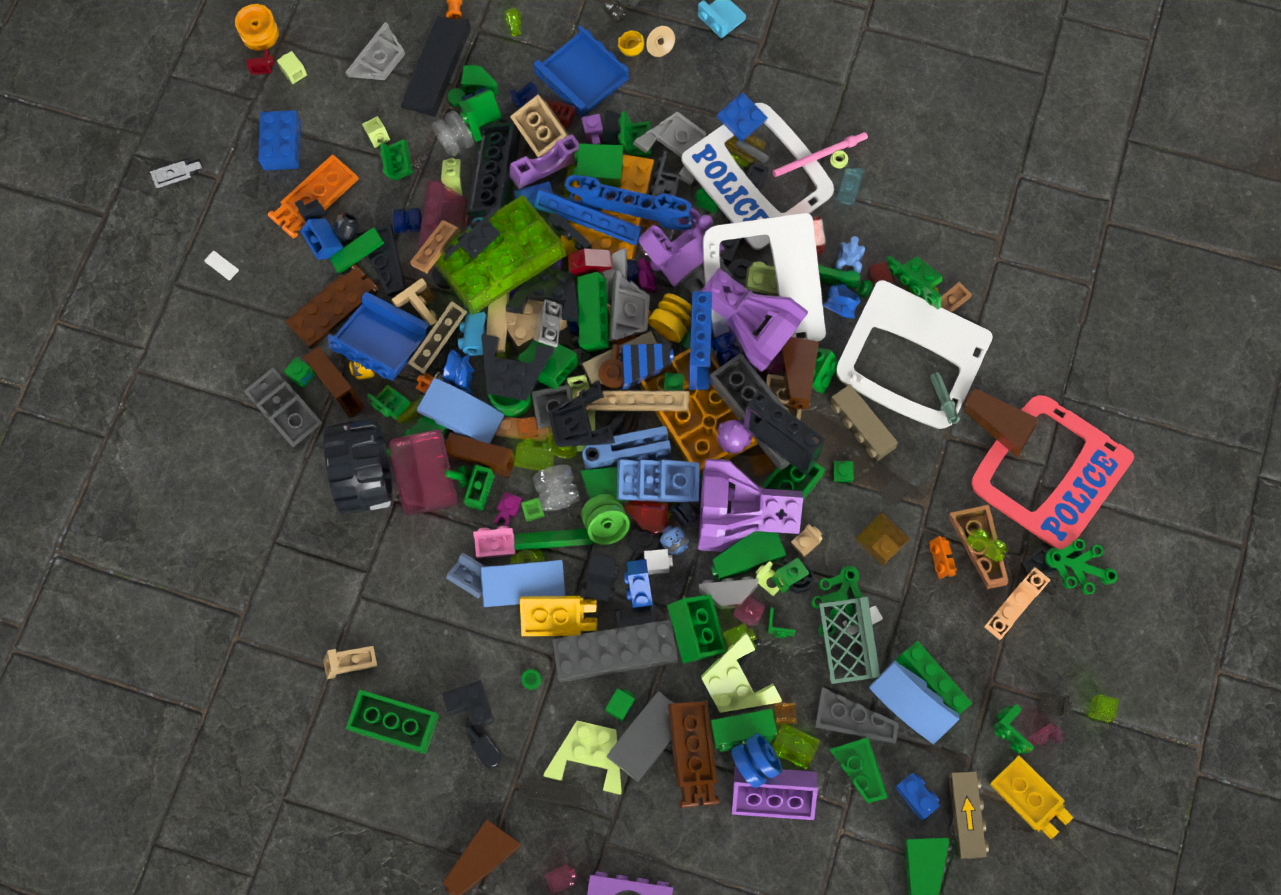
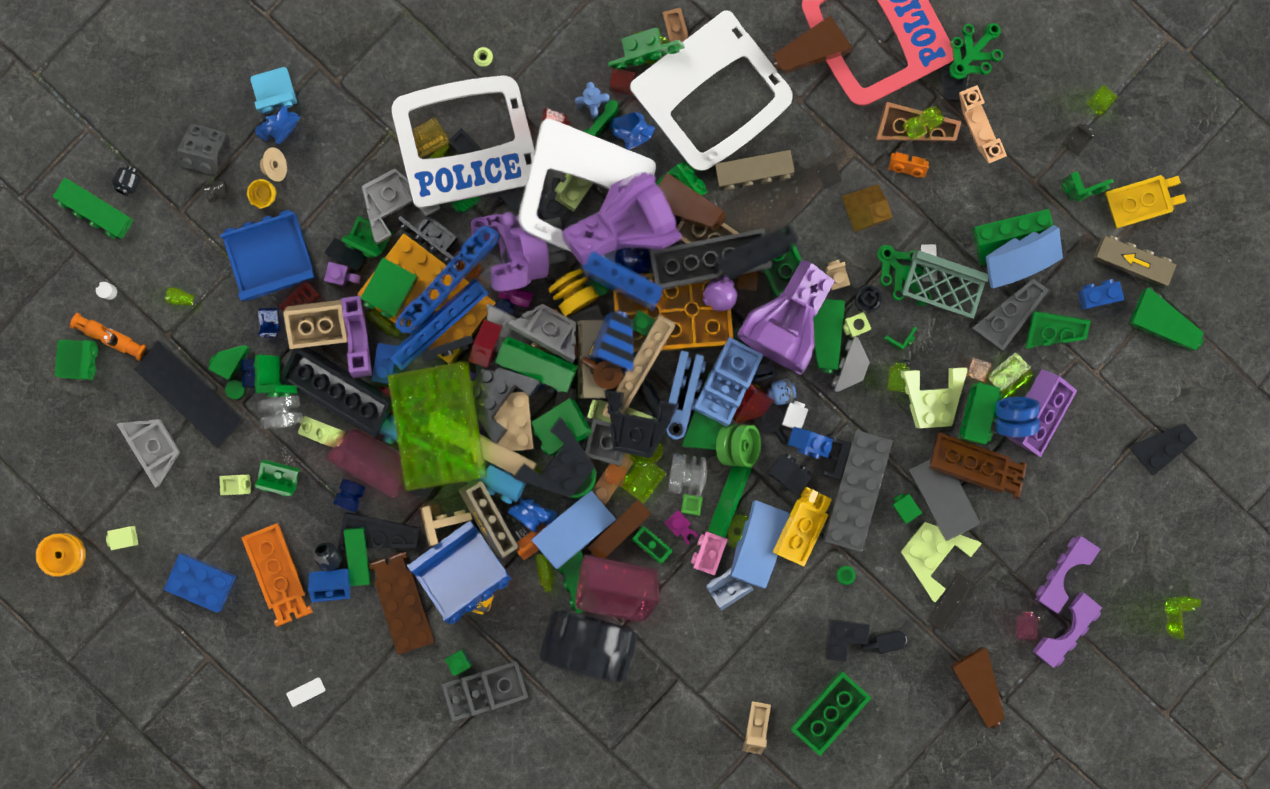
camera: 70 degrees left, 15 degrees up
(174, 172) = (184, 698): hinge -> none
(261, 65) = (104, 569): dark red bracket -> none
(312, 210) = (294, 583): black panel -> none
(334, 382) = (482, 634): reddish brown slope -> none
(390, 402) = (529, 590): green bracket -> none
(434, 246) = (404, 483): medium nougat plate -> none
(461, 475) = (628, 552): green bar -> none
(478, 239) = (416, 439): black bracket -> none
(548, 323) = (532, 412): light grey slope -> none
(694, 29) = (278, 125): none -> blue piece
(696, 628) = (875, 411): green brick -> none
(742, 117) = (402, 128): blue plate -> none
(750, 612) = (879, 357): clear pink bracket -> none
(753, 151) = (438, 134): dark grey piece -> none
(790, 574) = (863, 305): green bracket -> none
(843, 471) = (789, 210): green plate -> none
(848, 142) = (470, 38): bright pink bar -> none
(850, 185) = (515, 60): clear light blue slope -> none
(865, 288) = (626, 101): green plate -> none
(946, 403) = (765, 85): sand green axle -> none
(1041, 735) = (1098, 162): clear pink bracket -> none

